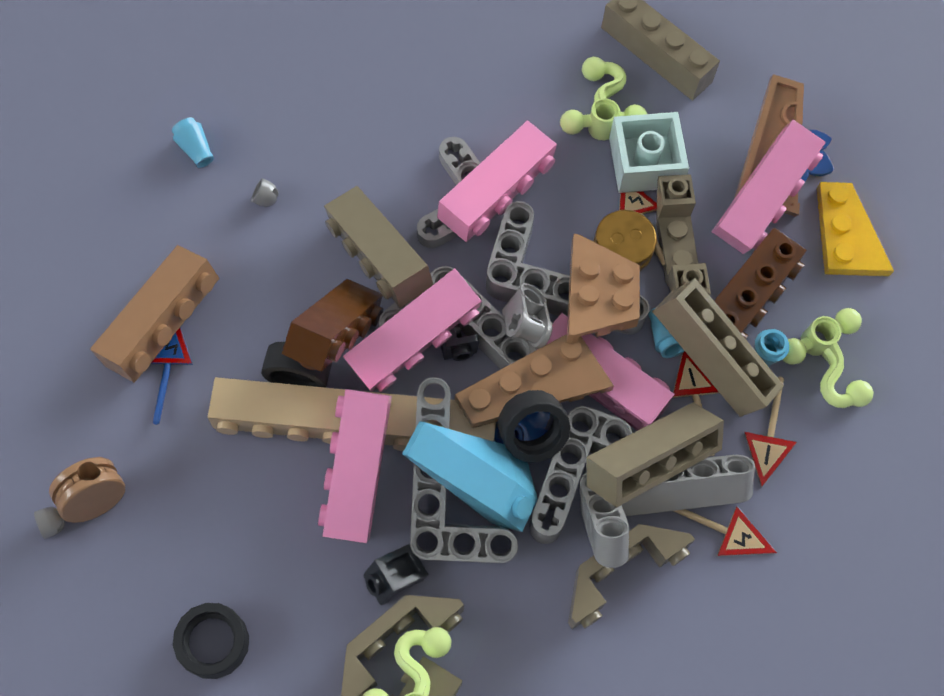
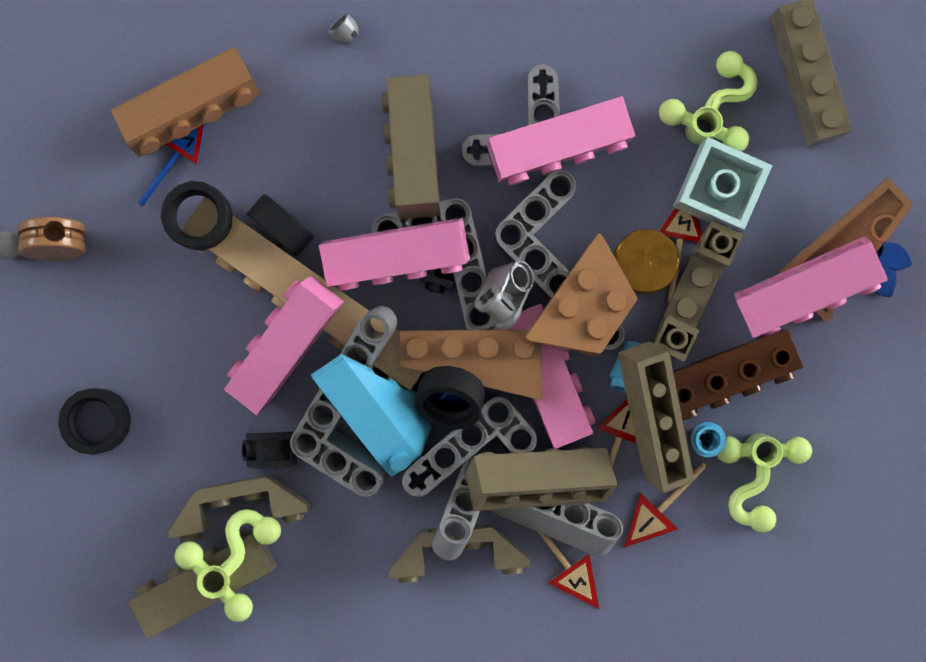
camera: 30 degrees right, 20 degrees up
(209, 367) = (172, 203): none -> black tyre
(332, 325) = (325, 211): reddish brown brick -> none
(847, 234) = (860, 365): yellow wing -> none

